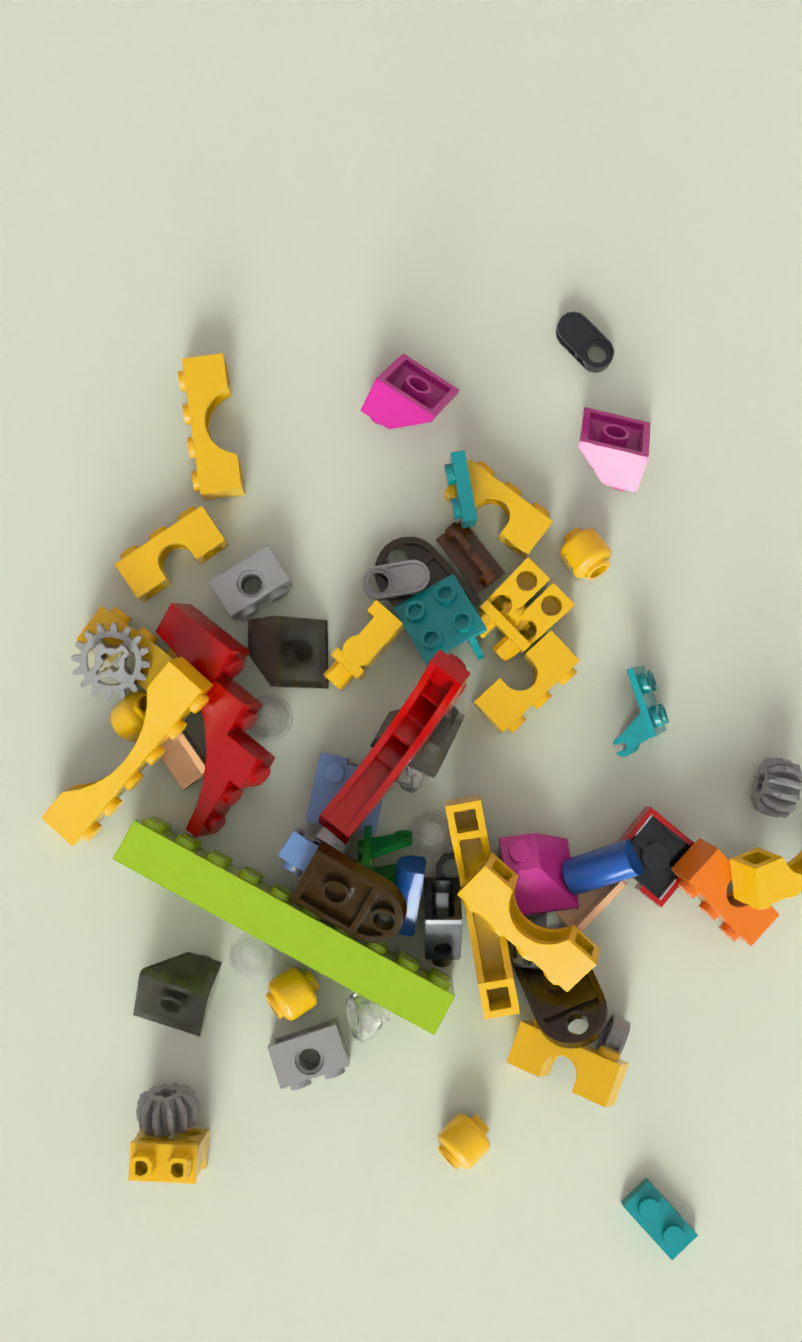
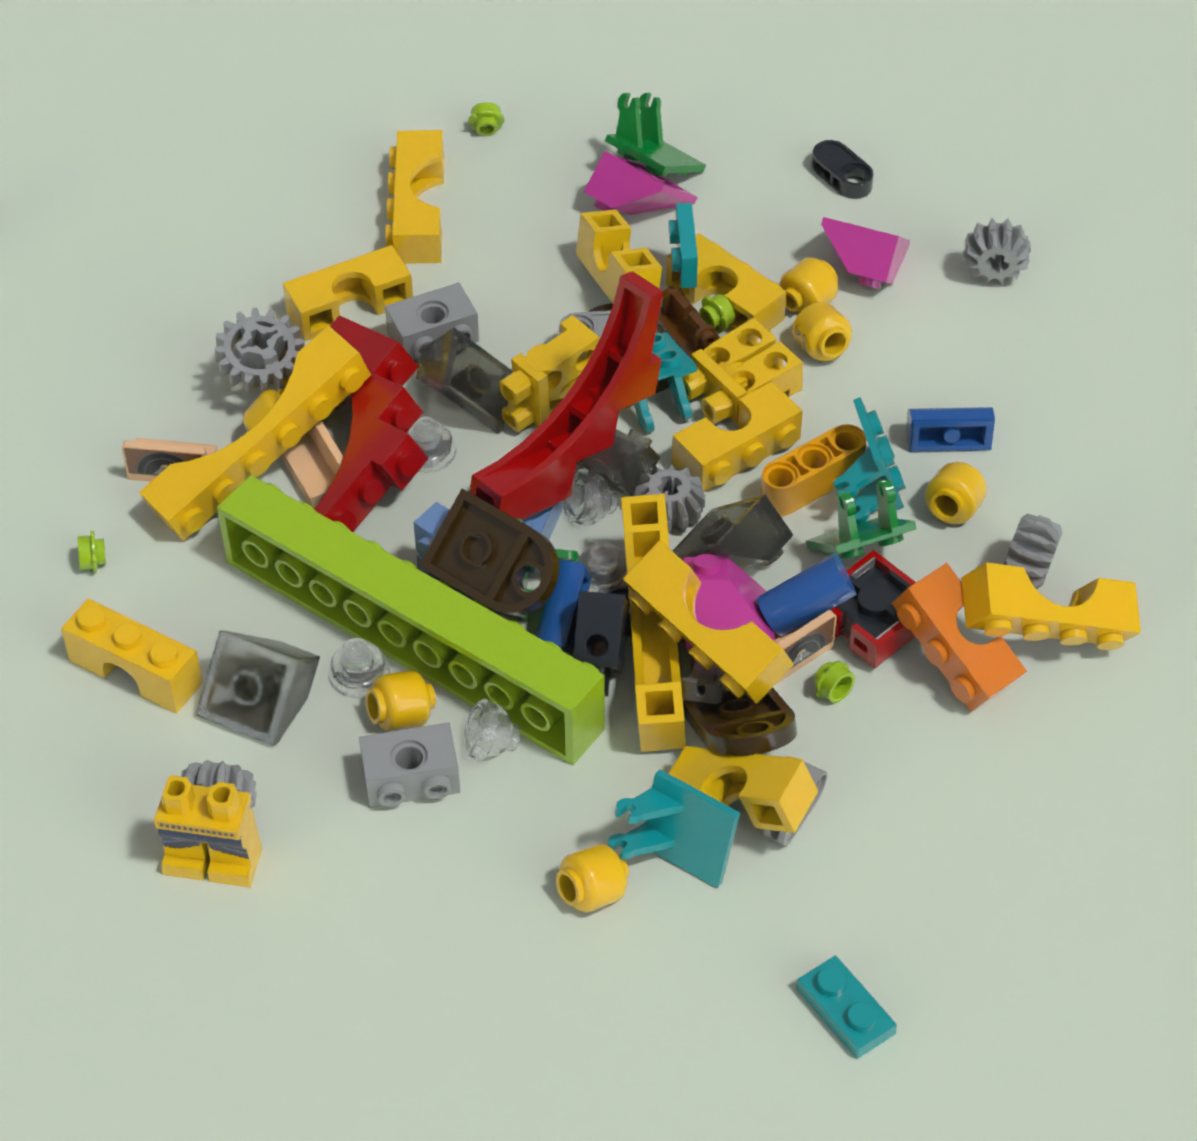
camera: 10 degrees right, 35 degrees down
(14, 868) = (91, 552): none -> lime plate
(59, 758) = (149, 457): none -> panel
(85, 985) = (161, 666): none -> yellow arch
(258, 317) = (486, 118): none -> lime plate
(391, 486) = (606, 251): none -> yellow arch
(413, 346) = (641, 138): none -> green plate
(489, 760) = (682, 495): none -> light grey gear
(493, 543) = (717, 312): none -> lime plate
(512, 1095) = (679, 827): none -> teal plate
(530, 798) = (742, 531): none -> clear smoke slope
(569, 498) = (809, 283): none -> yellow head
(603, 699) = (811, 468): none -> light orange beam
(626, 926) = (834, 681): none -> lime plate
(638, 785) = (852, 537): none -> green plate
(700, 648) = (950, 429): none -> blue brick
(710, 723) = (955, 493): none -> yellow head
(730, 444) = (997, 250): none -> light grey gear

